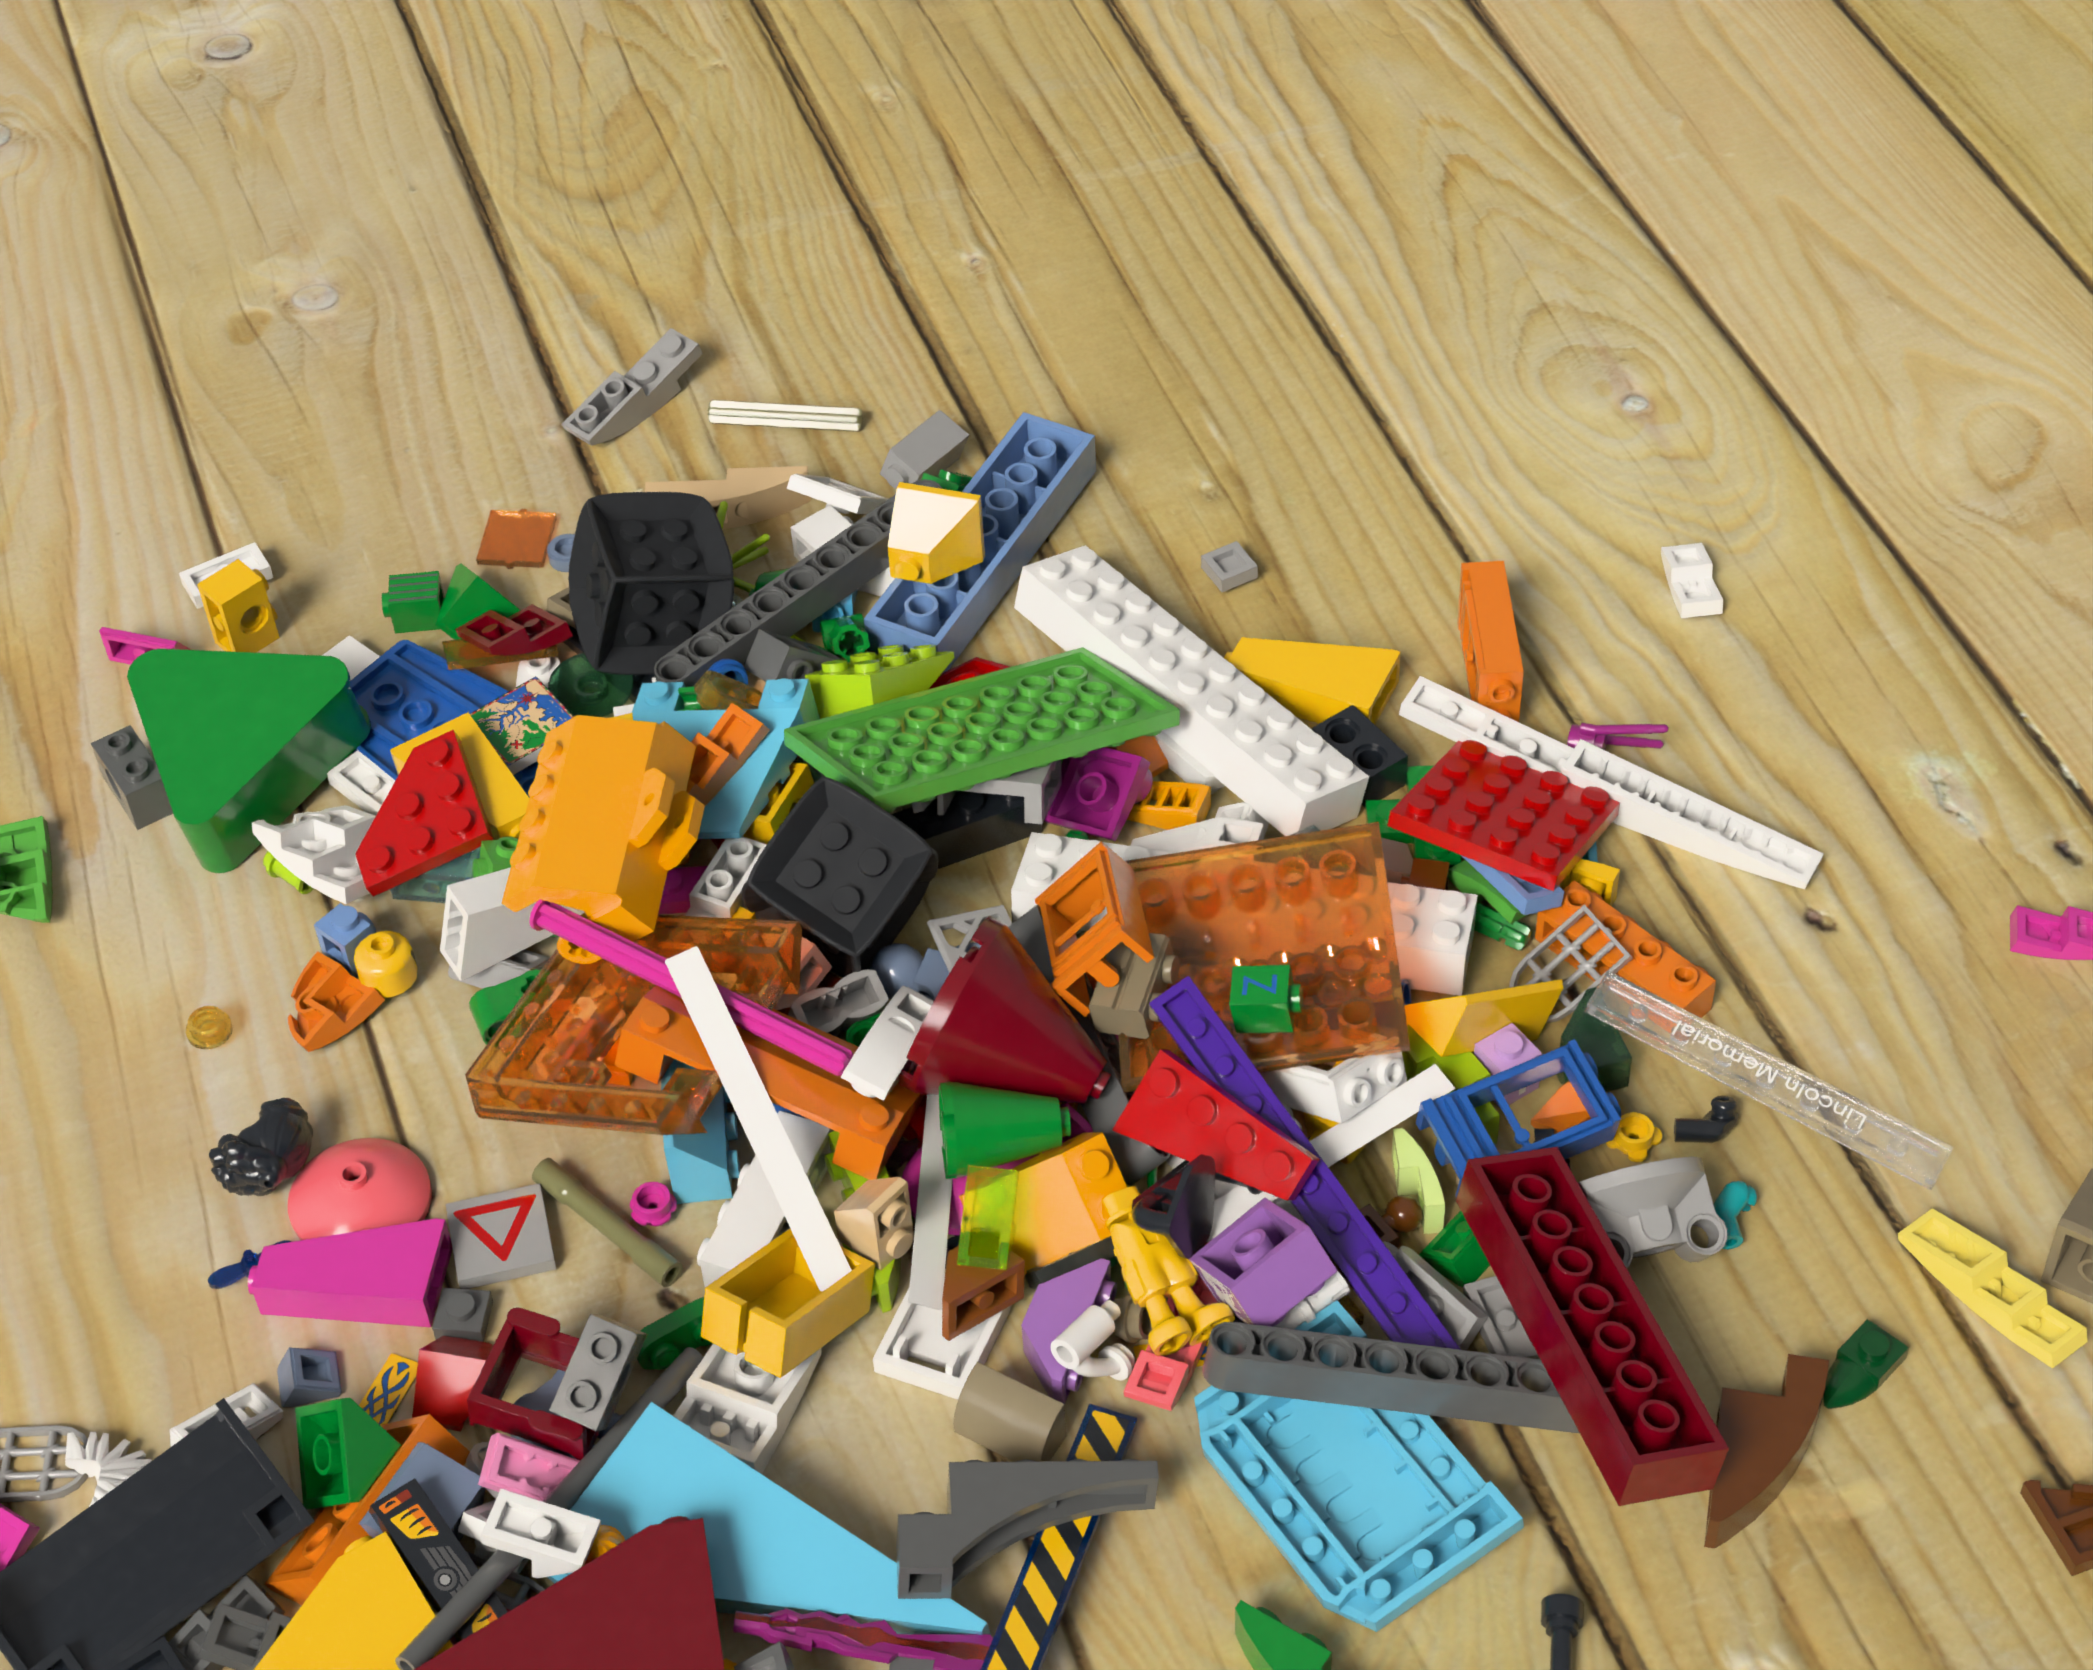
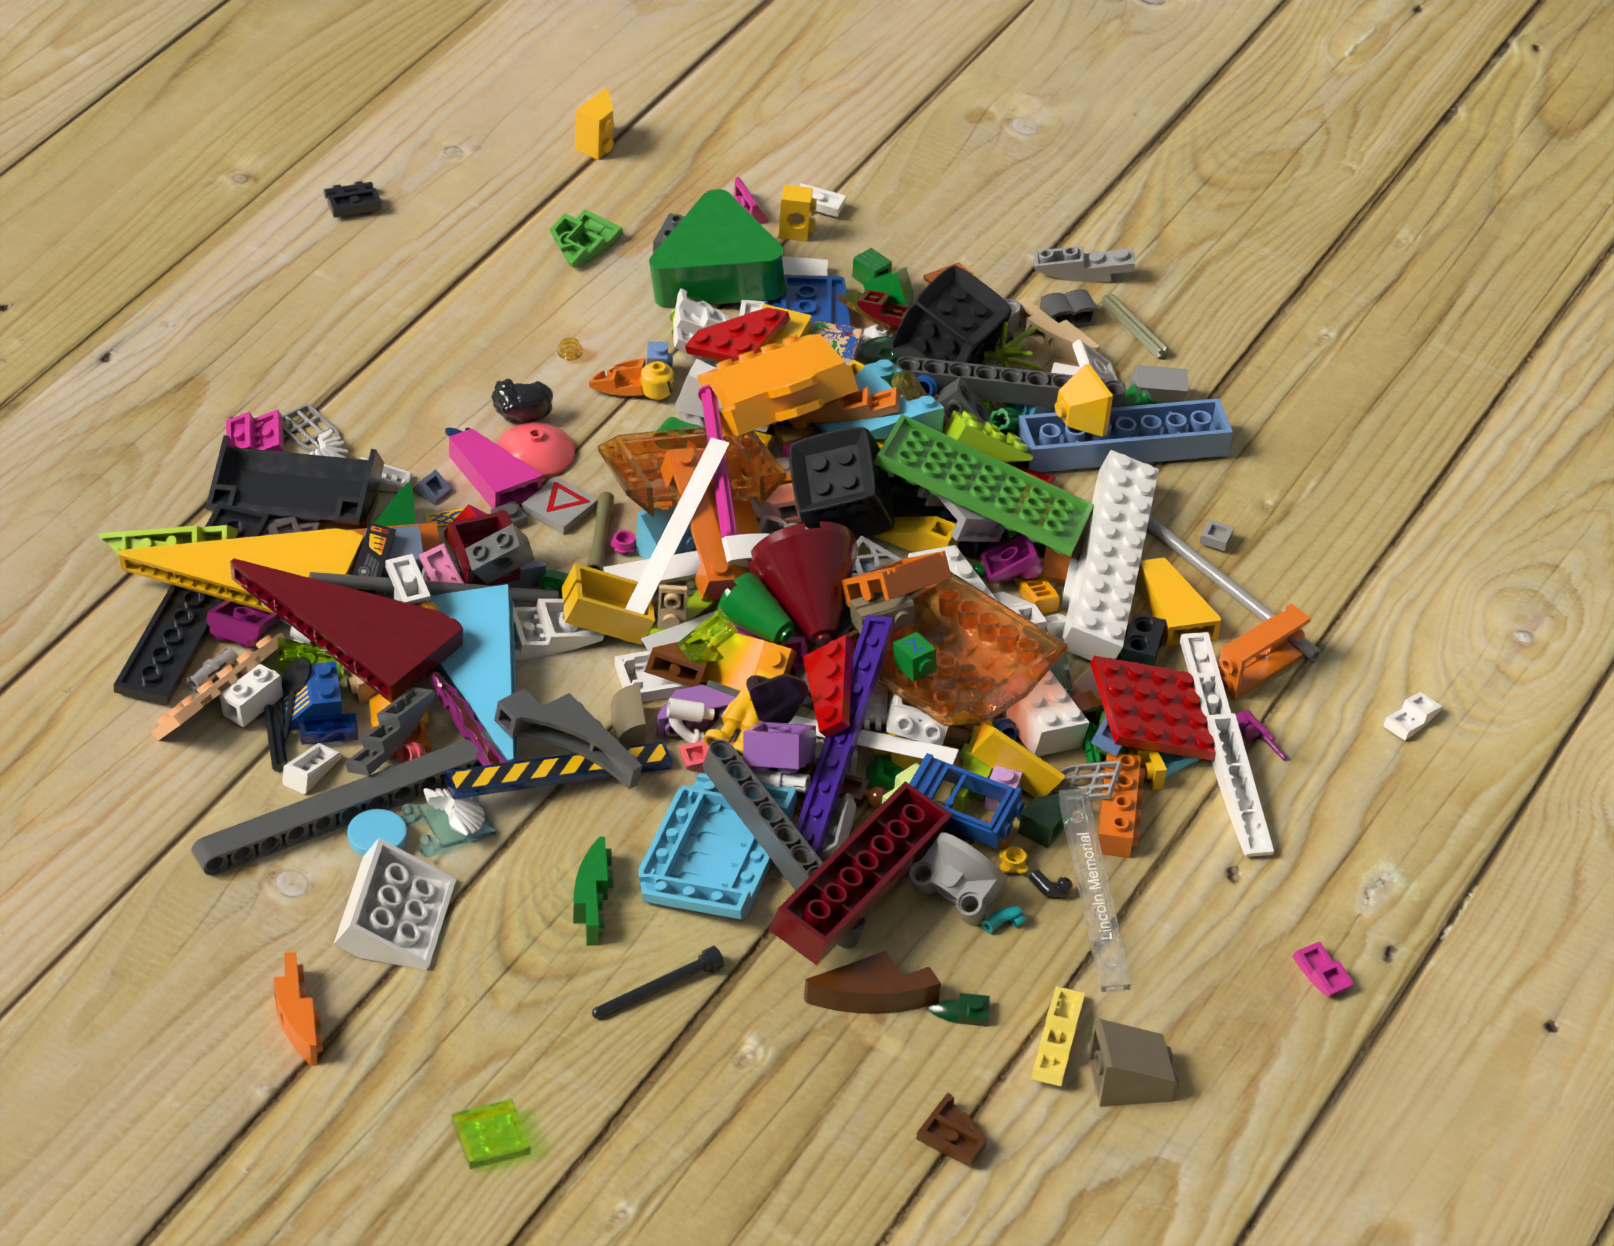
camera: 45 degrees right, 5 degrees down
(697, 452) = (1072, 306): none -> dark grey brick
(976, 853) = (920, 533): none -> yellow slope
(1317, 611) = (1224, 582): none -> light grey piece
(1362, 1179) = (882, 773): none -> green slope

